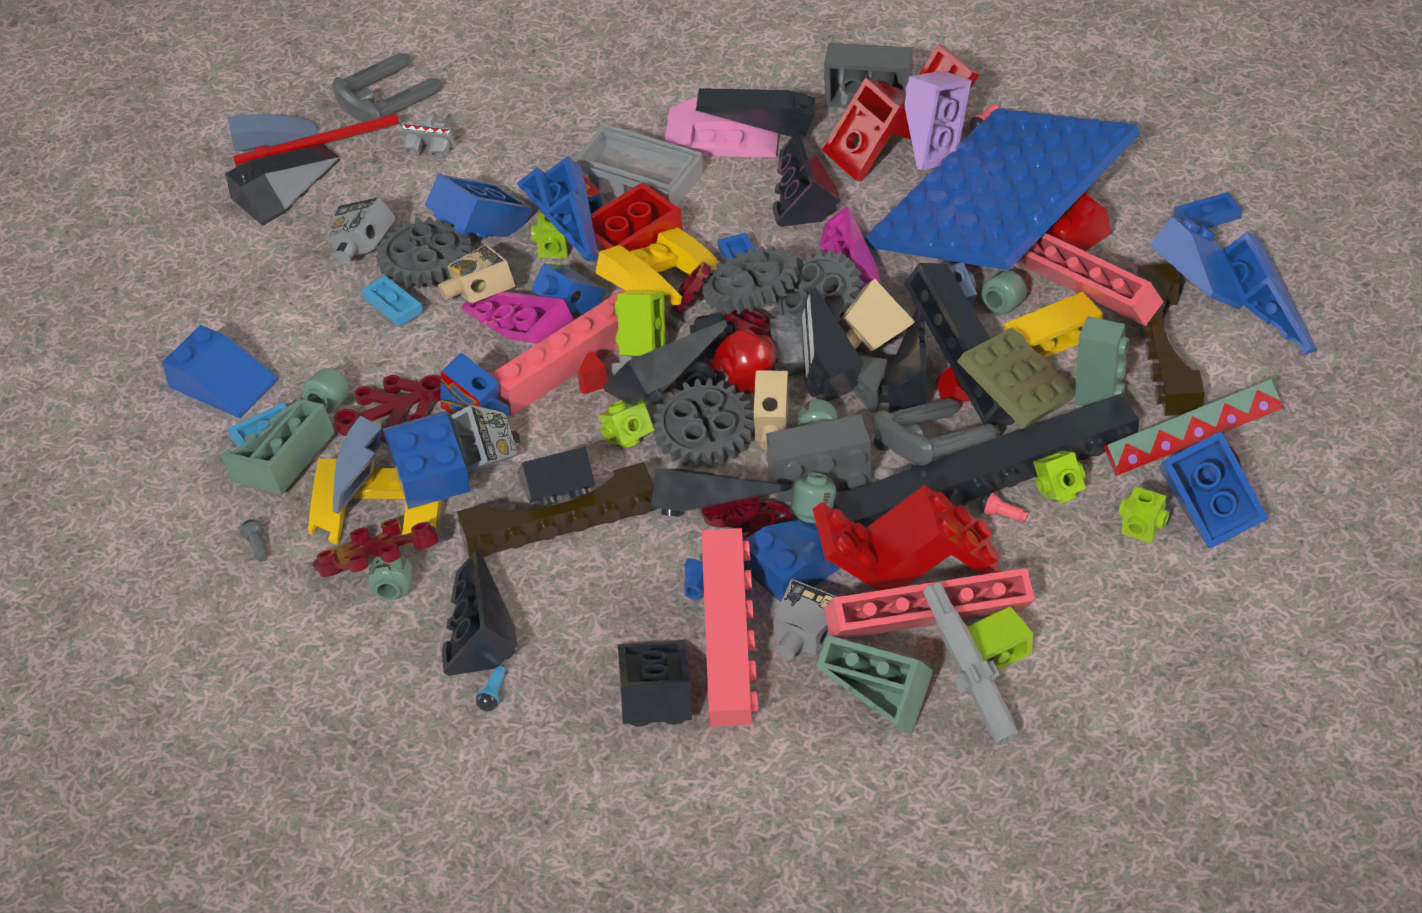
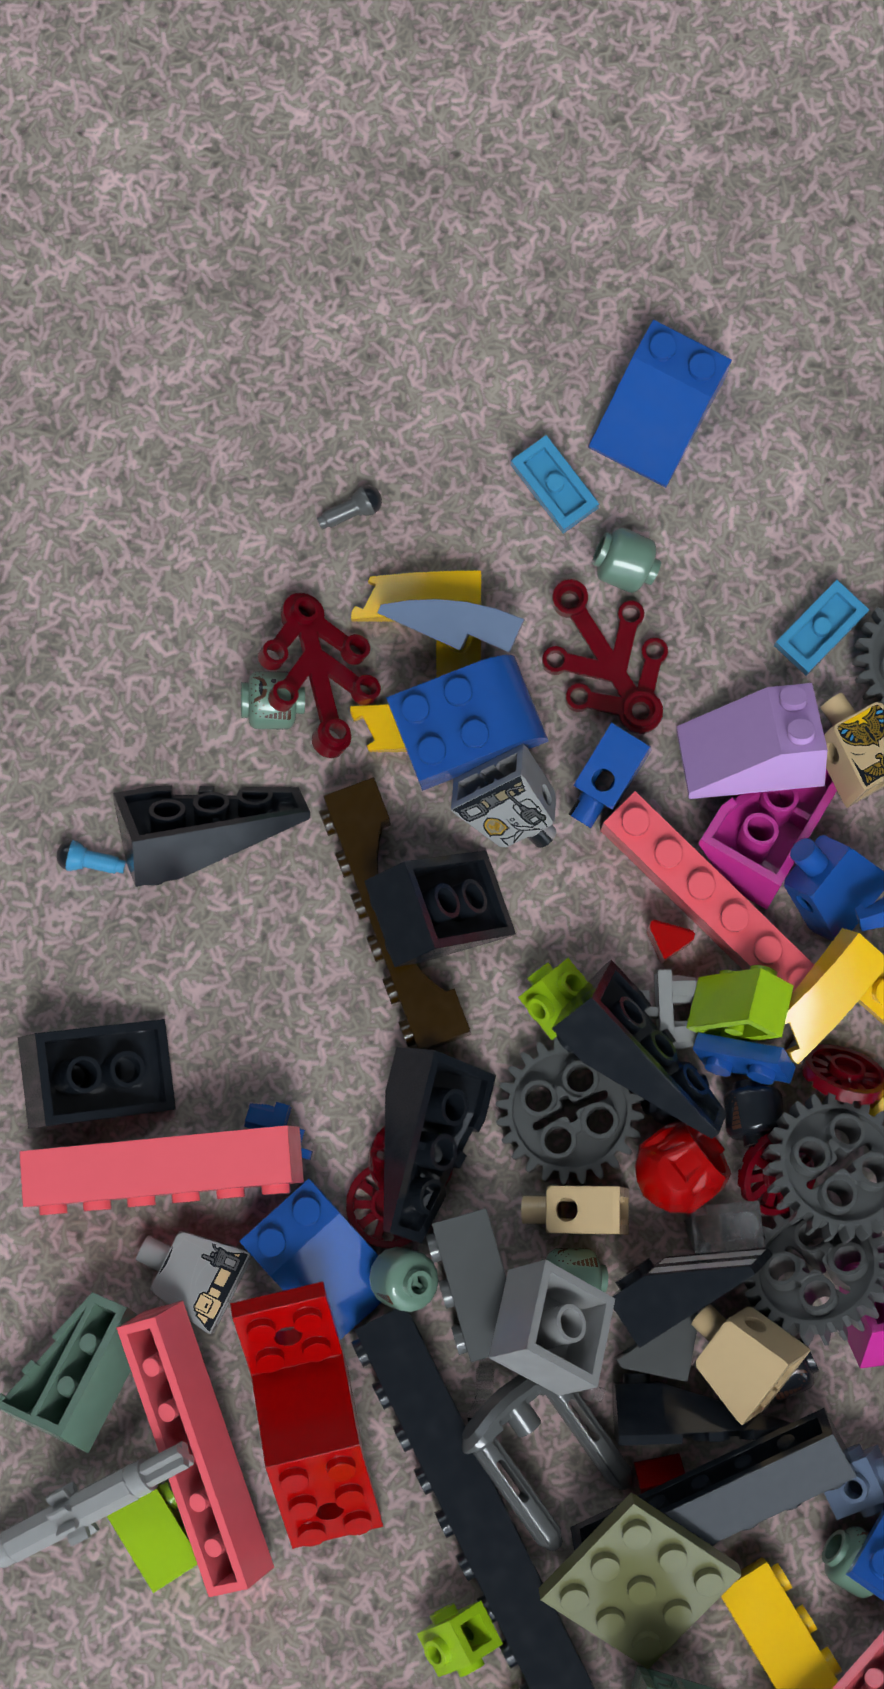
camera: 85 degrees right, 35 degrees up
(282, 449) = (501, 517): sand green wedge -> none
(466, 317) = (755, 744): none -> lavender slope
(677, 320) = (756, 1060): none -> blue plate
(847, 391) = (552, 1328): none -> light grey brick
(992, 504) = (423, 1536): coral piece -> none

